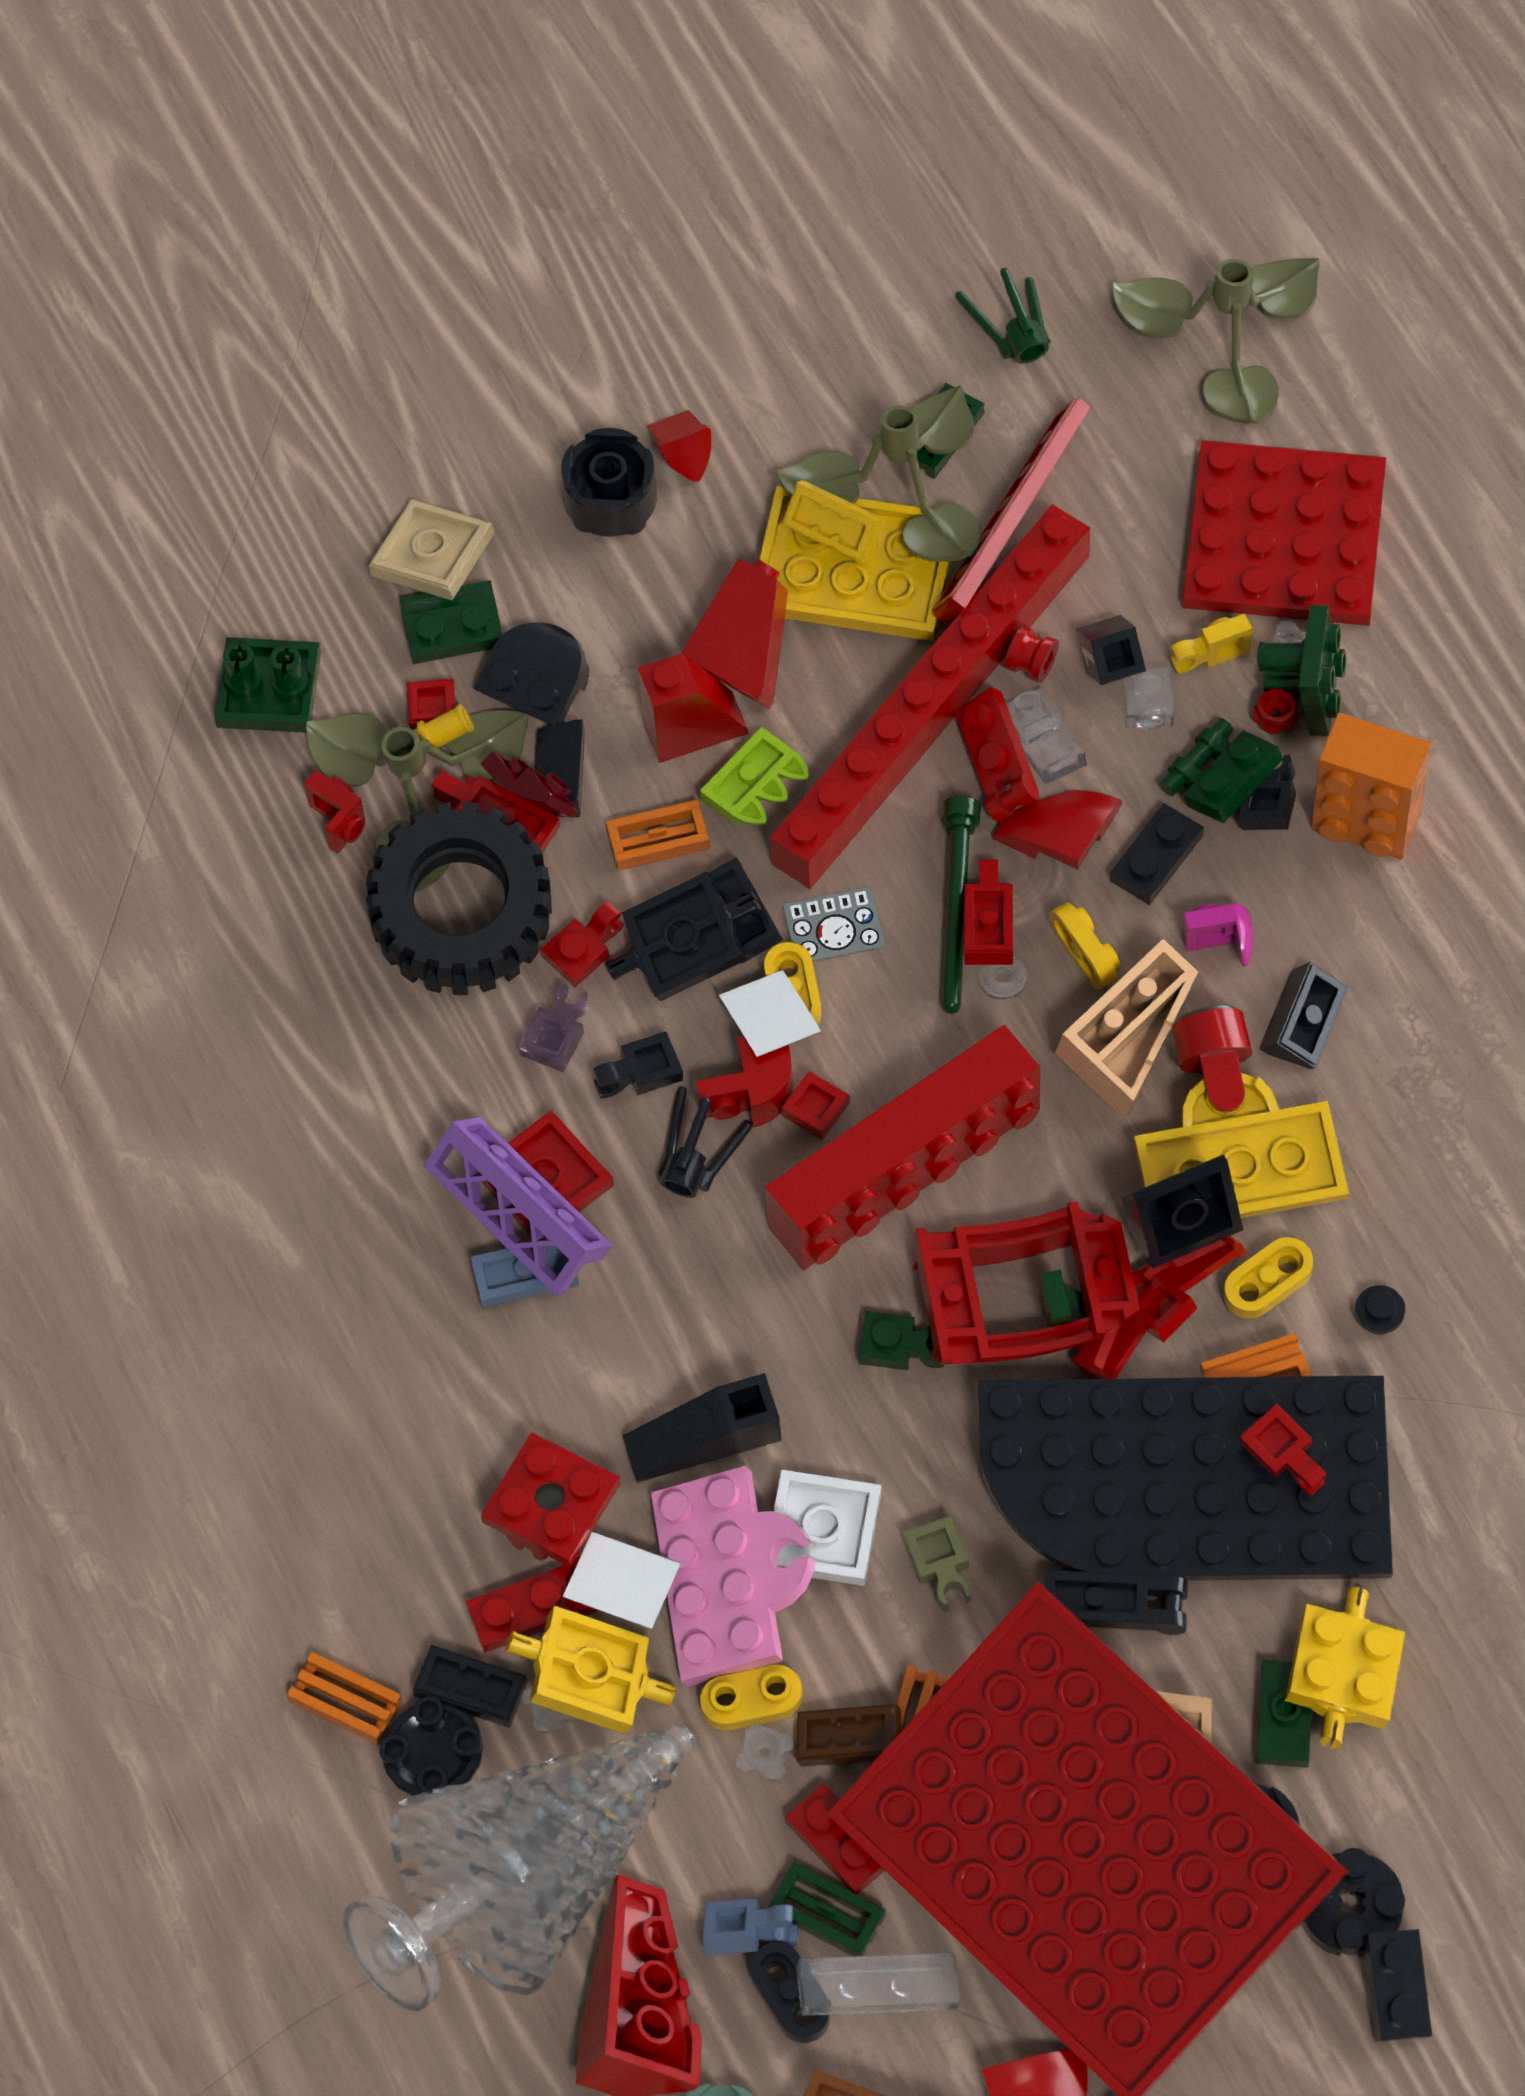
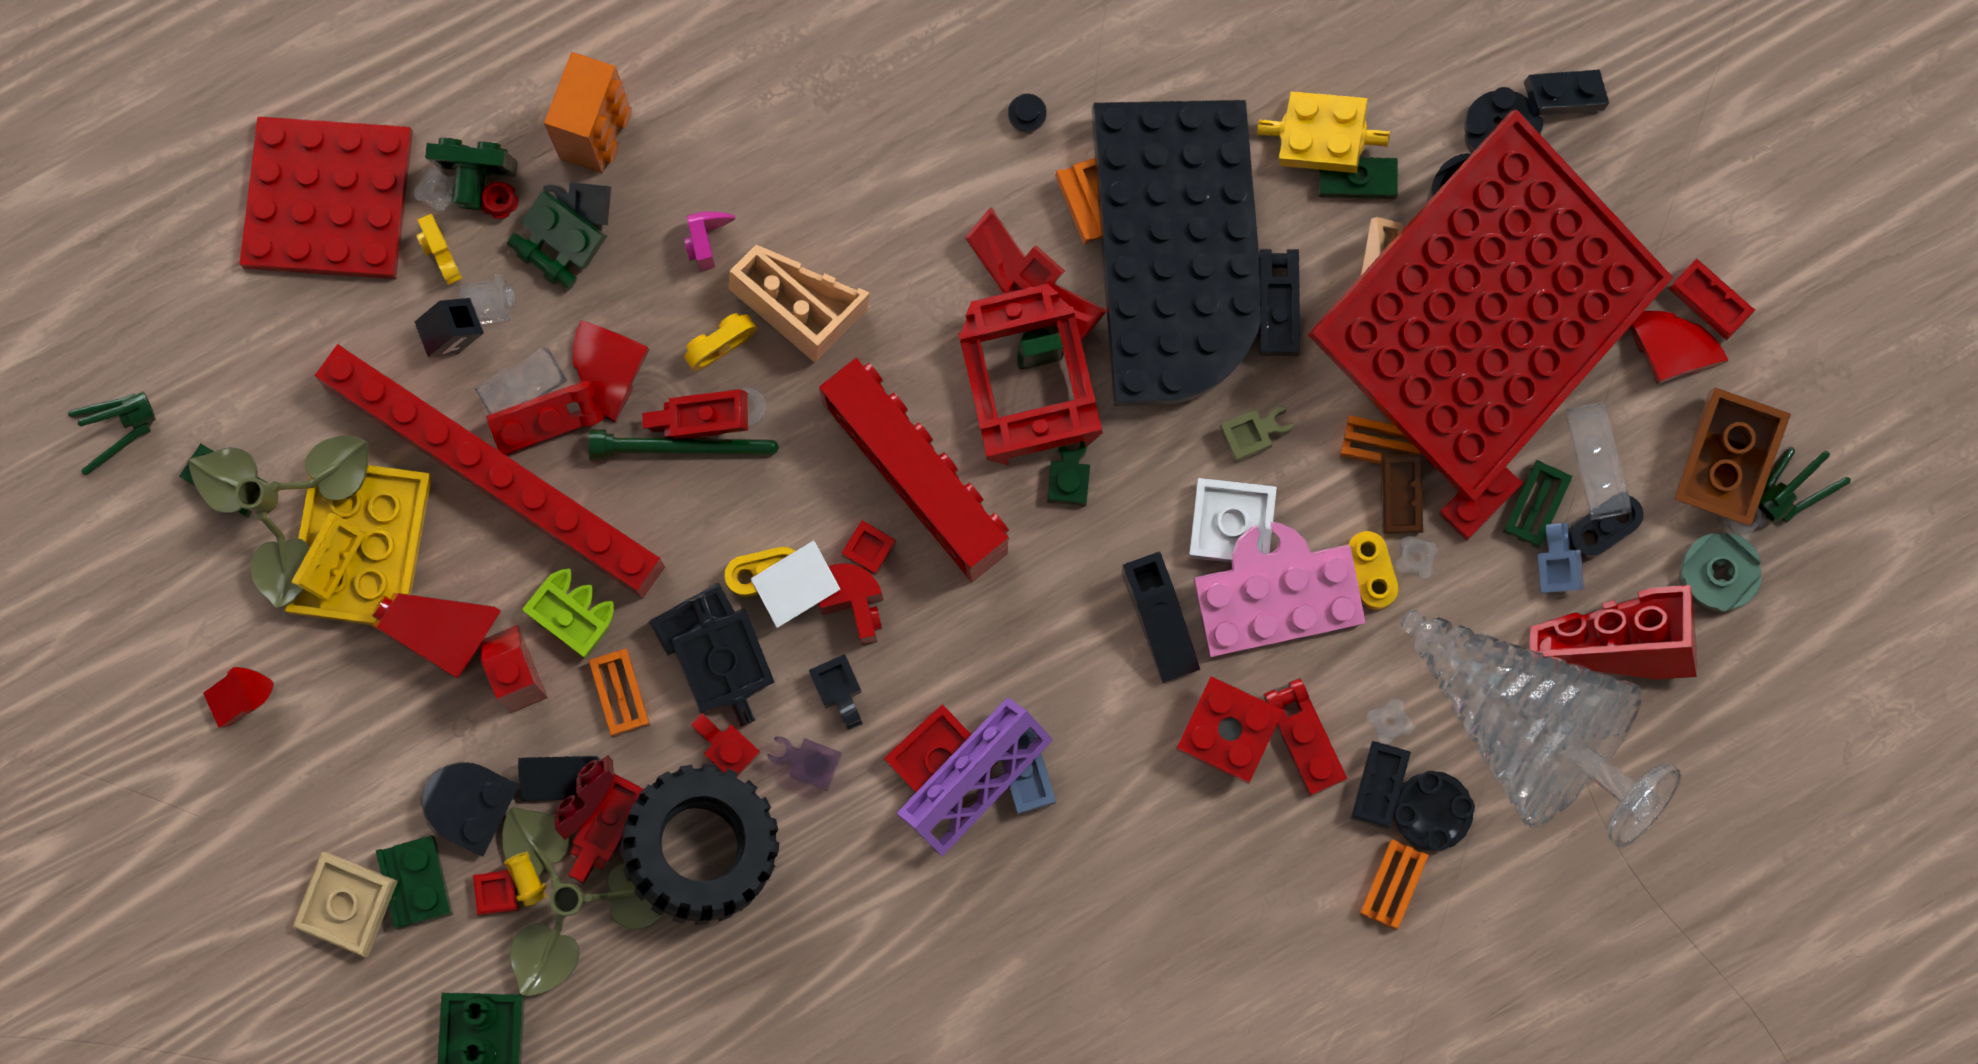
camera: 95 degrees left, 15 degrees up
(338, 803) = (595, 964): red bracket -> none
(590, 1669) = (1368, 689): yellow plate -> none
(609, 483) = (271, 734): black brick -> none
(621, 1580) = (1291, 671): white sticker -> none
(685, 1170) = (930, 645): black plant -> none
(835, 923) = (697, 545): sticker -> none
(1011, 510) = (311, 411): tile -> none
(1031, 654) = (448, 393): red wheel -> none
(1156, 854) = (630, 291): black plate -> none
(1184, 1211) = (966, 250): black slope -> none
(1266, 1280) = (1007, 195): yellow plate -> none
(1273, 1154) = (894, 219): yellow plate -> none
(1281, 288) = (86, 211): olive plant -> none
(1281, 1445) = (1164, 172): red plate -> none
(1304, 1016) = (773, 176): black slope -> none

